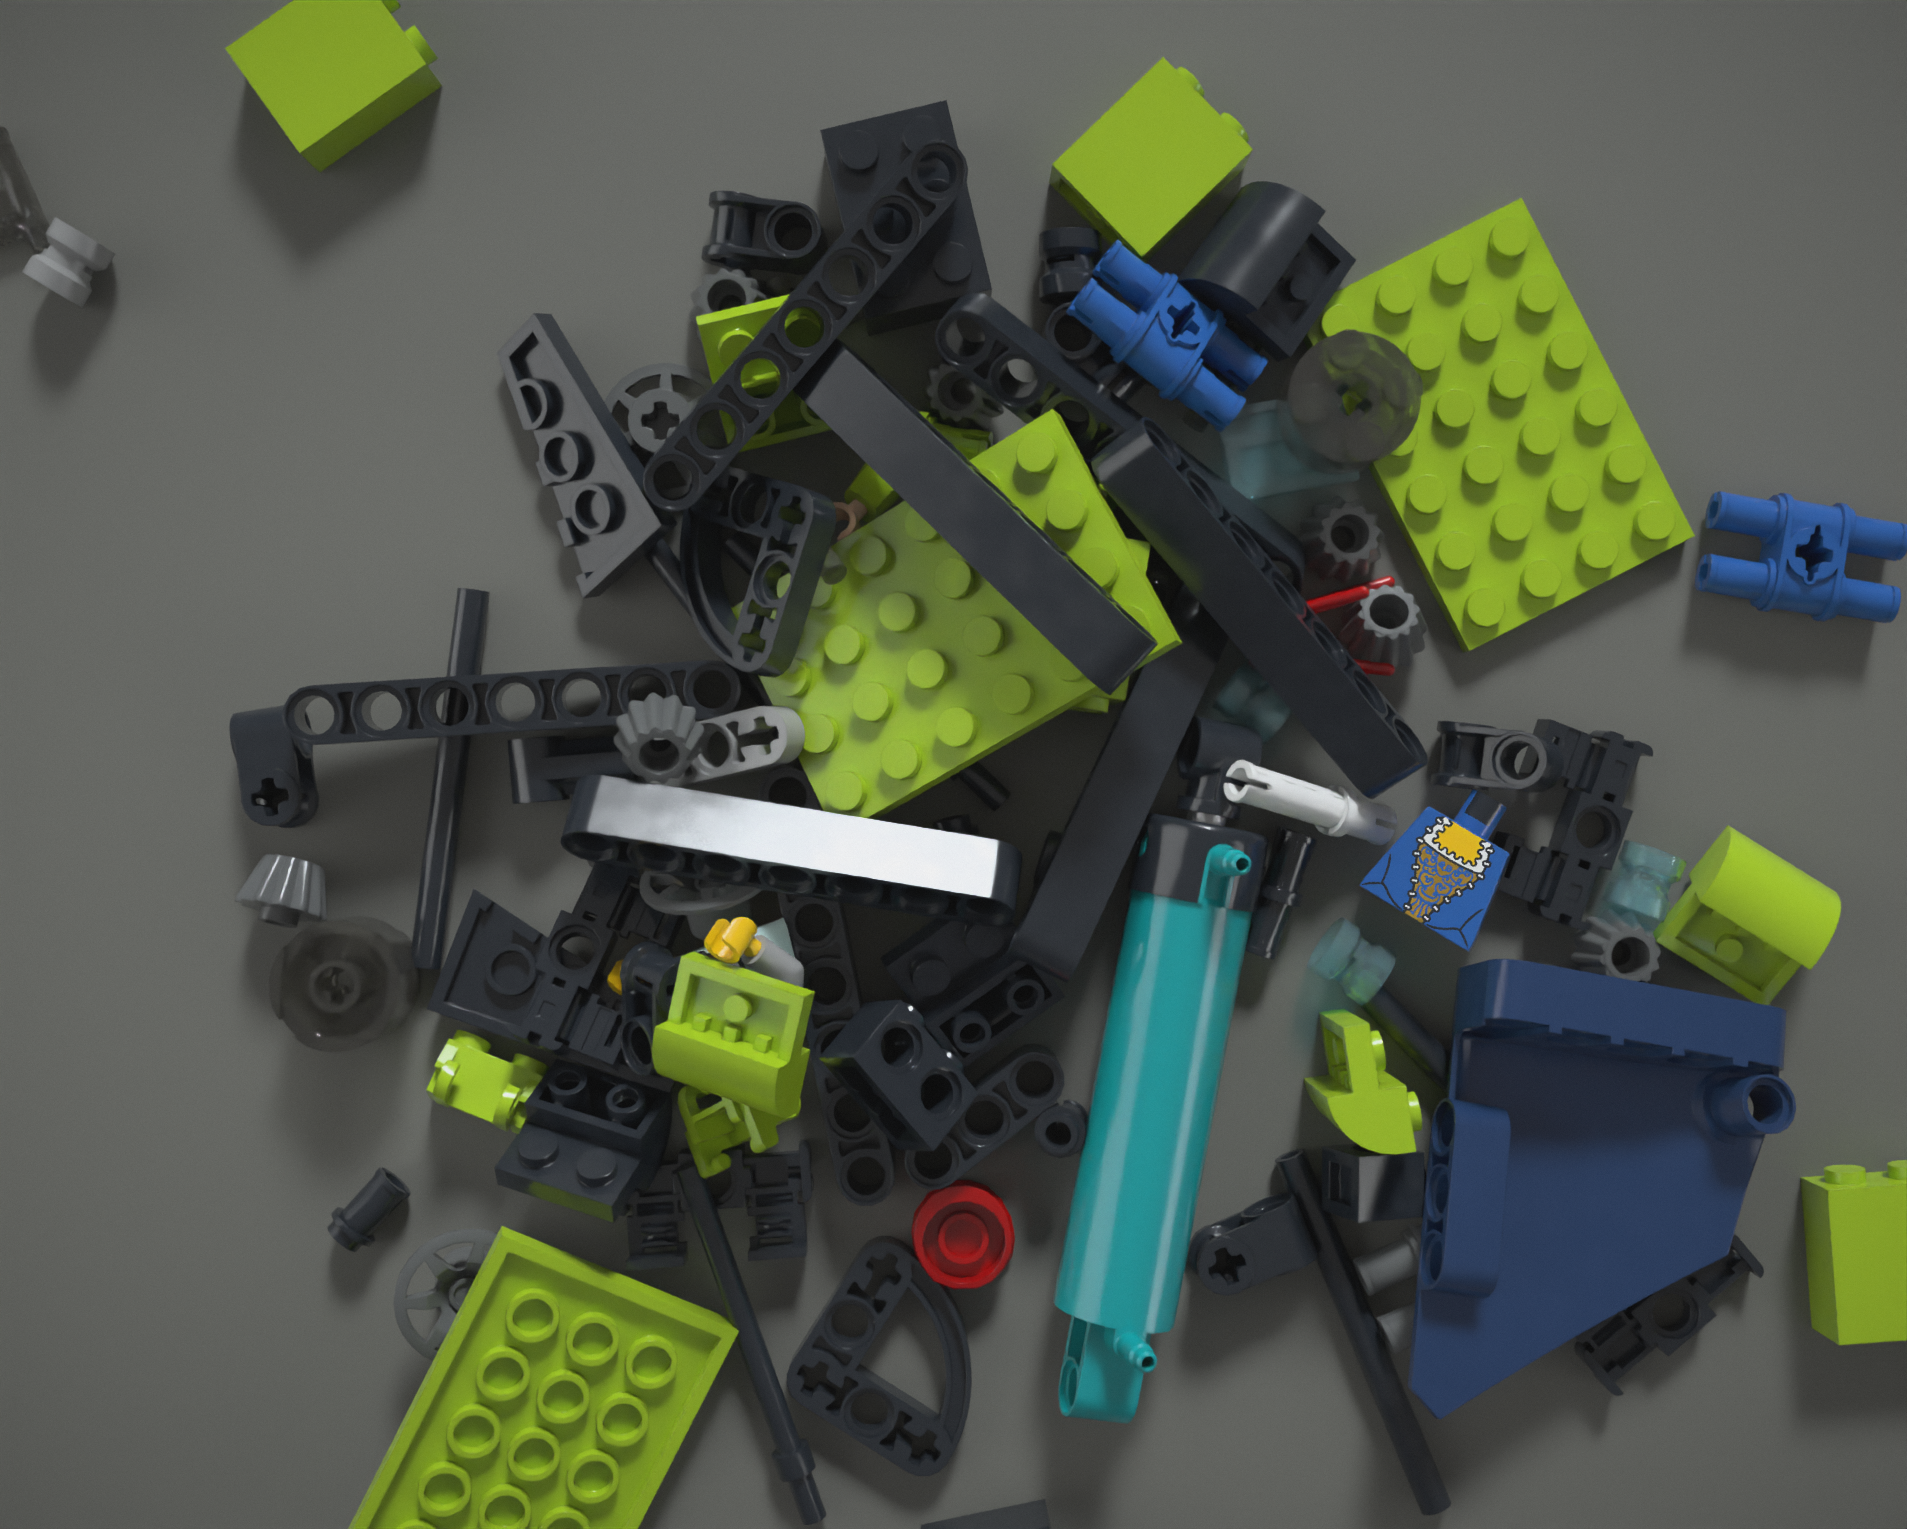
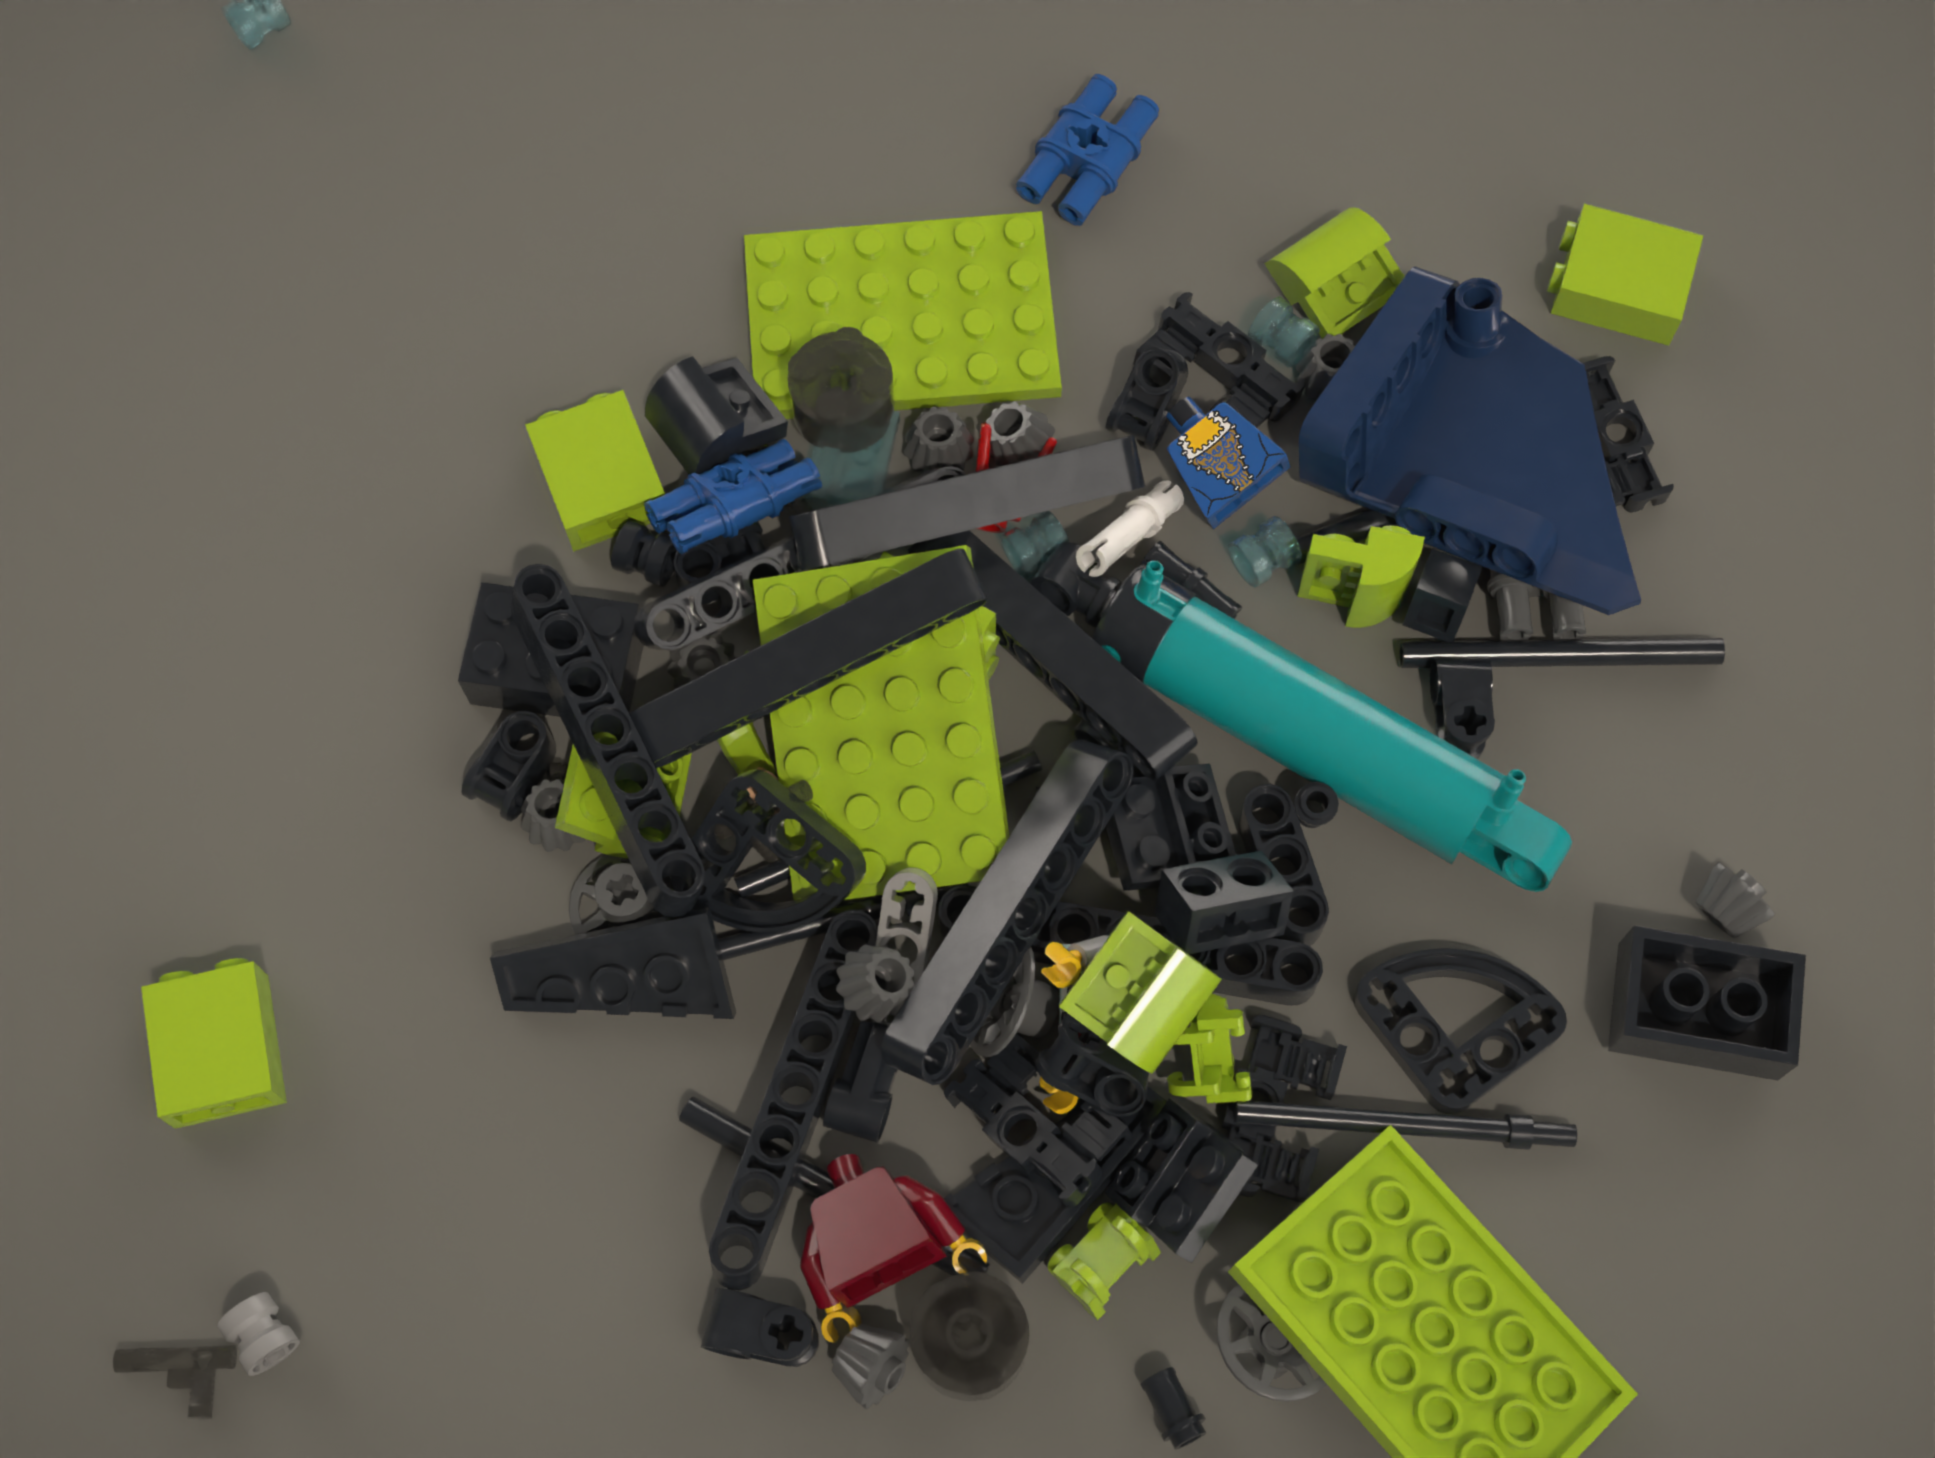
camera: 65 degrees left, 20 degrees down
(401, 849) = (873, 1236): none -> dark red torso
(963, 1235) = (1375, 921): red piece -> none

